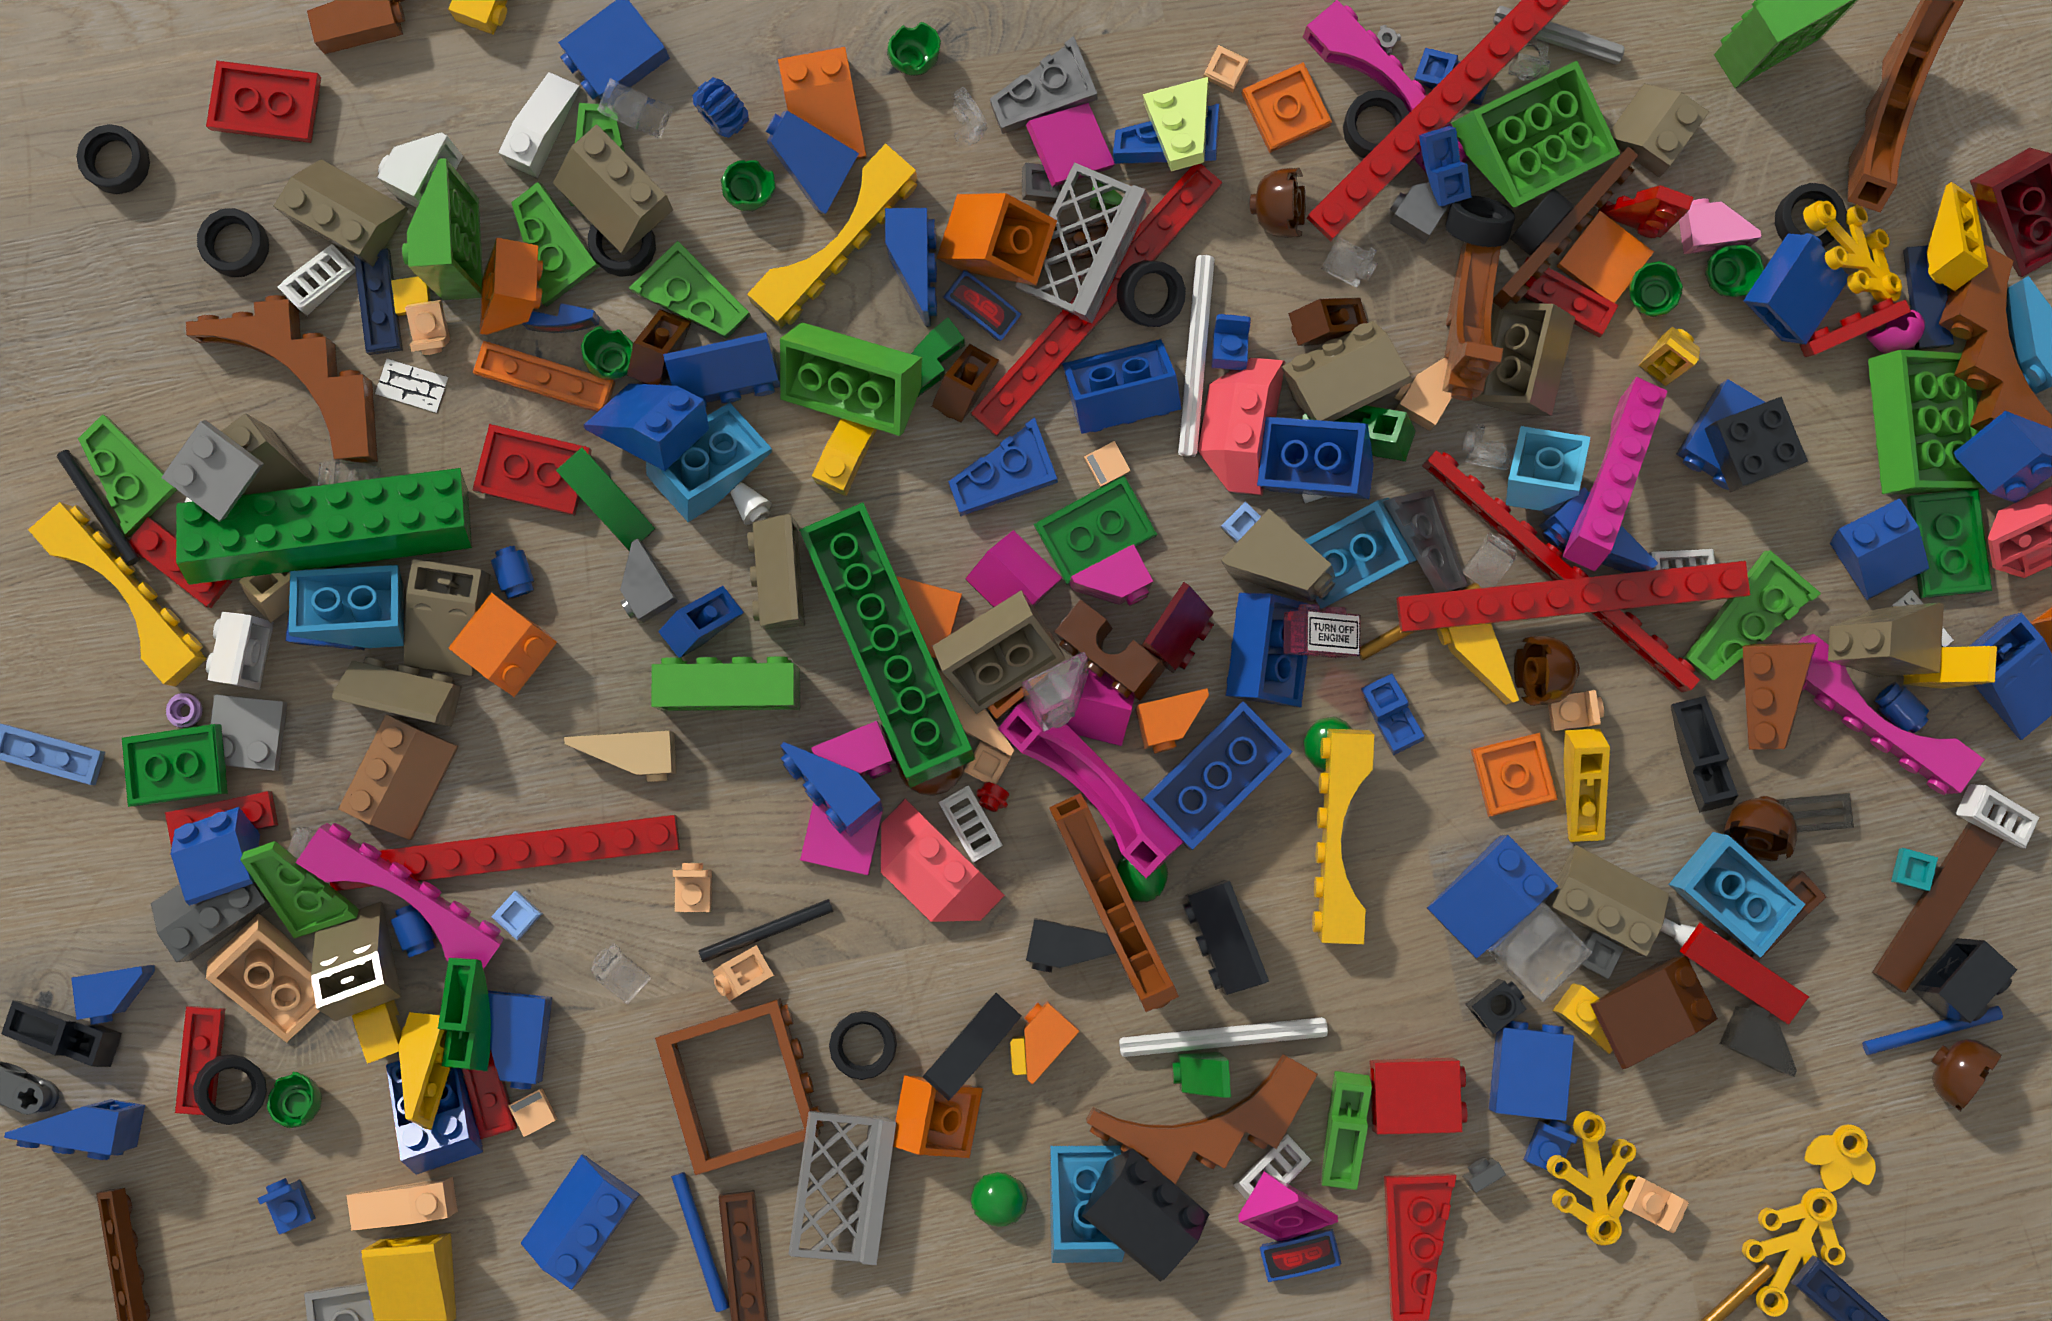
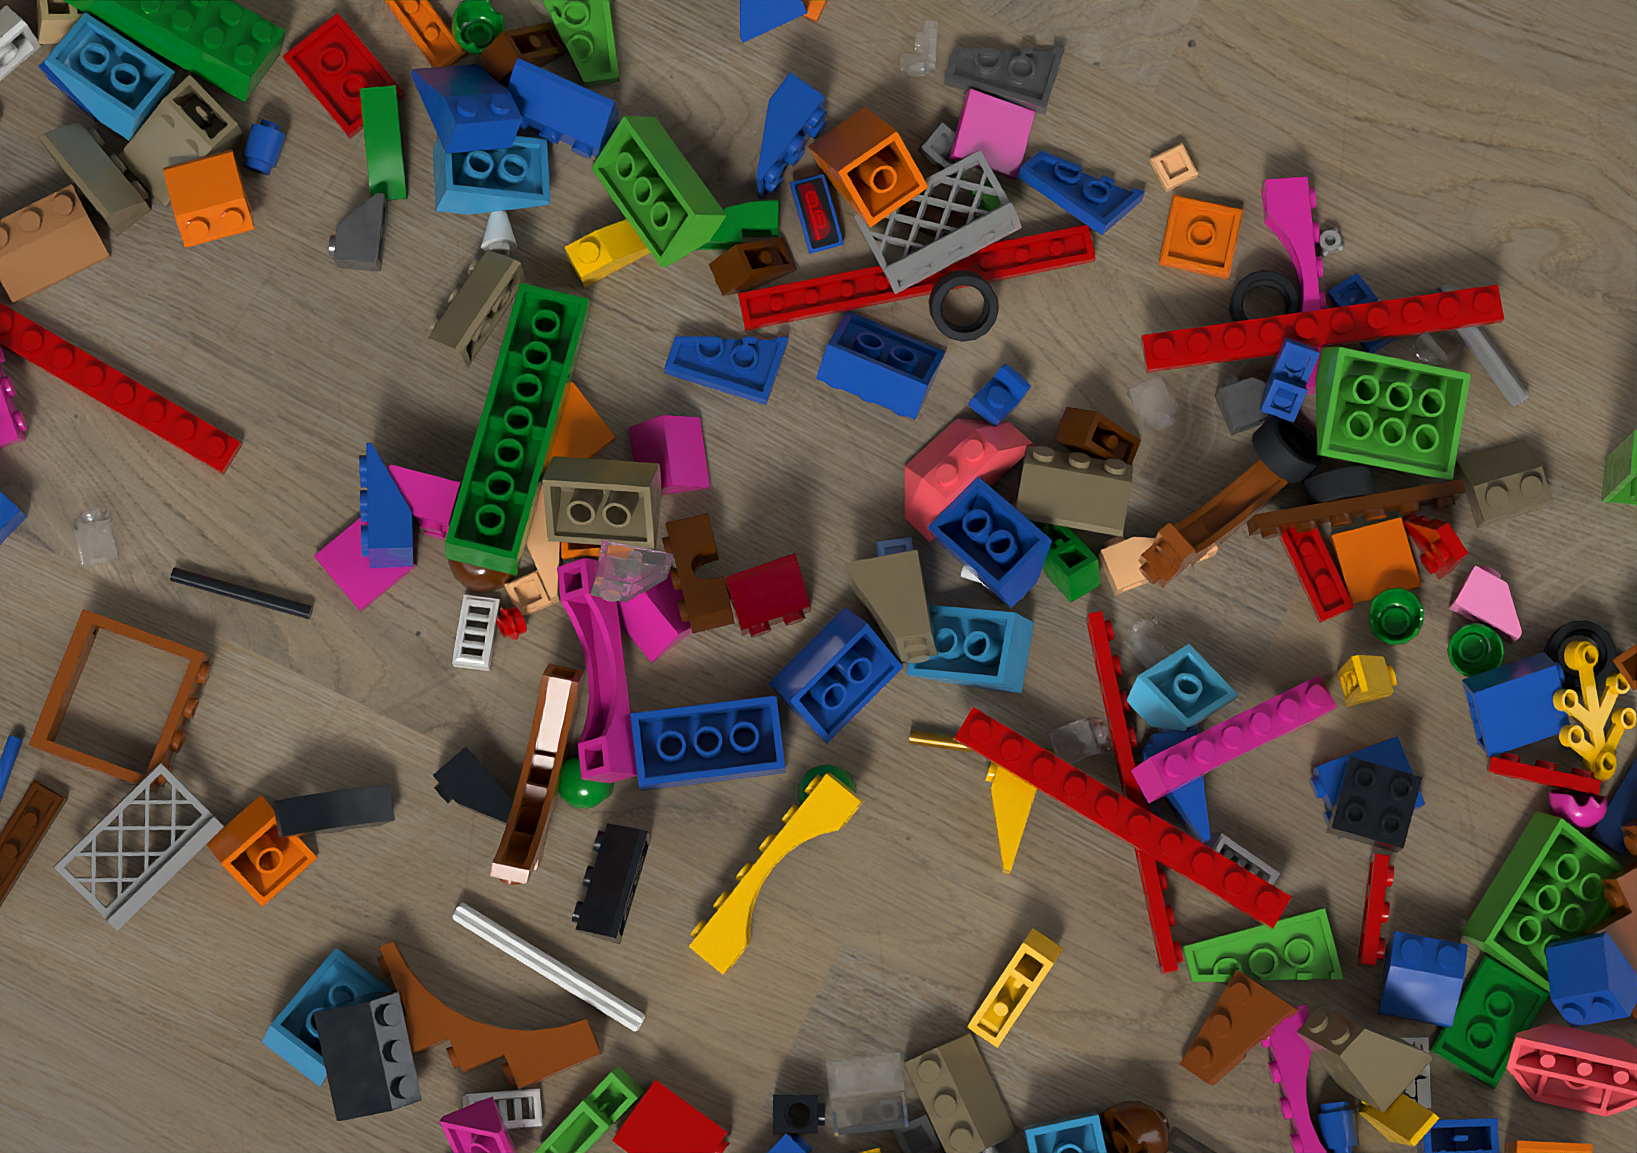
camera: 40 degrees right, 5 degrees down
(517, 915) = (50, 428): light blue tile -> none
(639, 753) = (251, 370): tan slope -> none
(693, 888) = (209, 513): light nougat bracket -> none
(700, 621) = (383, 299): blue slope -> none
(725, 686) = (362, 366): bright green brick -> none
(741, 973) = (194, 612): light nougat bracket -> none
(787, 288) = (665, 82): yellow arch -> none
(847, 1066) = (228, 725): black tyre -> none
(932, 869) = (416, 647): coral wedge -> none
(999, 1199) = (259, 959): green hair -> none
(1018, 1055) = (367, 851): yellow tile -> none
(1045, 1038) = (399, 853): orange slope -> none
(1095, 528) = (768, 468): green tile -> none
(1107, 464) = (819, 421): light nougat tile -> none
(1115, 579) = (750, 516): dark pink slope -> none
(1168, 719) = (705, 666): orange slope -> none
(1180, 121) = (1097, 181): yellowish green wing -> none
(1196, 356) = (963, 386): white axle -> none
(1203, 1074) = (505, 978): green slope -> none
(1280, 203) = (1131, 311): reddish brown cylinder -> none
(1321, 633) = (887, 690): brick -> none
(1392, 714) = (898, 806): blue slope -> none
(1427, 535) = (1040, 679): flat silver wing -> none
(1492, 895) = (863, 1019): blue slope -> none
(1514, 774) = (963, 934): orange tile -> none
(1532, 358) = (1239, 592): dark tan slope -> none
(1545, 670) = (1055, 865): reddish brown cylinder -> none
(1576, 711) = (1055, 919): light nougat bracket -> none
(1703, 754) = (1136, 1038): black slope -> none
(1806, 524) = (1375, 910): none -> red plate

